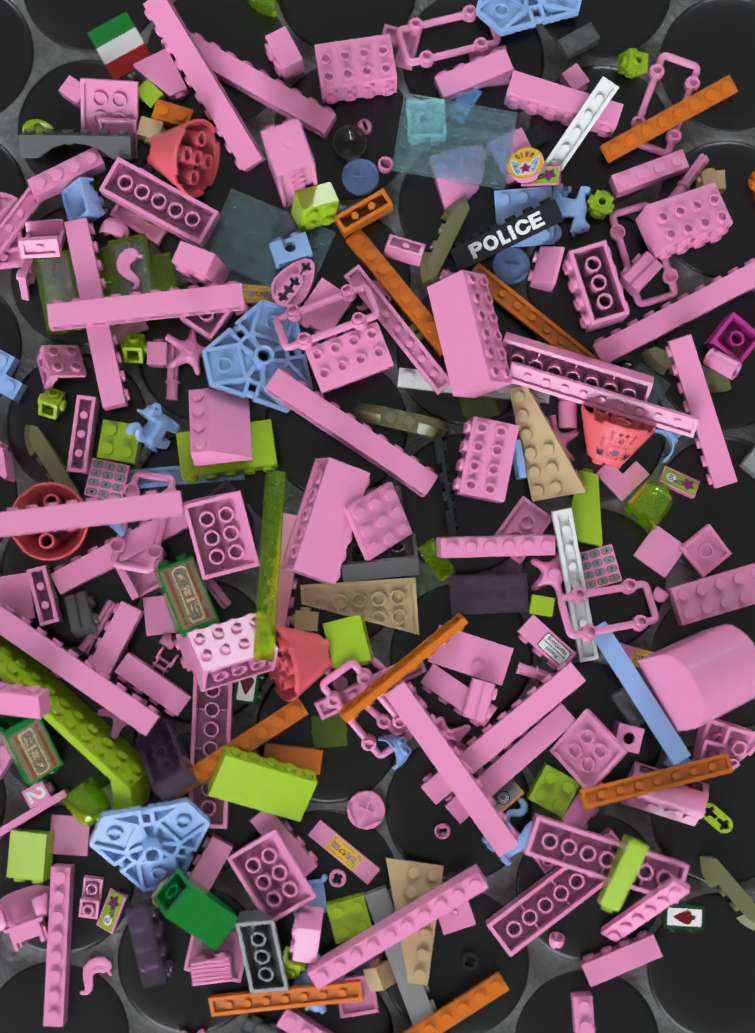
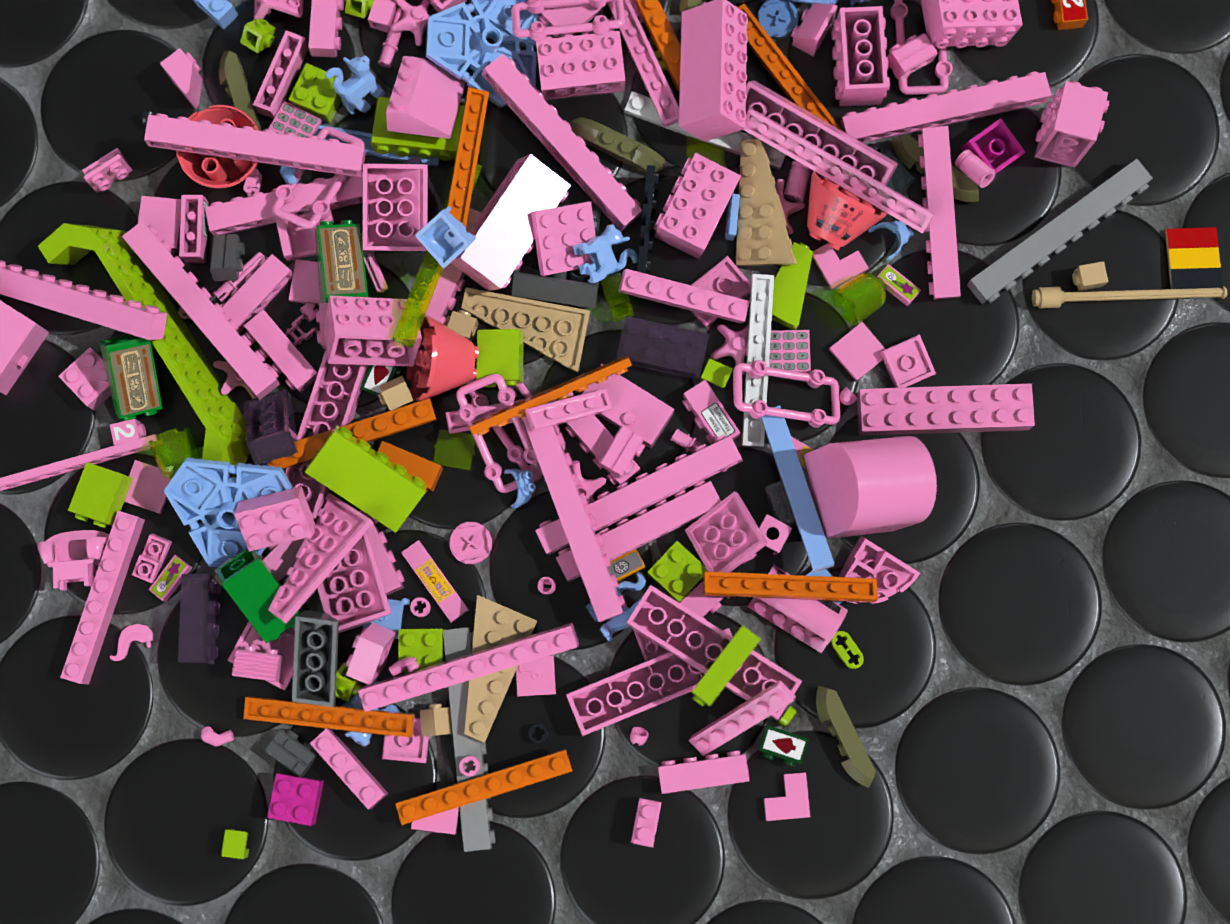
camera: 15 degrees right, 5 degrees down
(87, 541) = (253, 181): none -> bright pink piece
(193, 843) = (274, 518): none -> bright pink brick
(242, 857) = (333, 537): none -> bright pink wing
(266, 700) = (395, 393): none -> tan brick
(272, 481) = (467, 154): none -> orange plate
(277, 557) = (445, 237): none -> light blue brick
(337, 938) = (406, 663): none -> bright pink arm
(413, 526) = (602, 255): none -> light blue animal
(415, 1003) = (472, 772): none -> bright pink bush
(423, 677) = (568, 409): none -> bright pink tile
(703, 964) = (795, 802): none -> bright pink tile

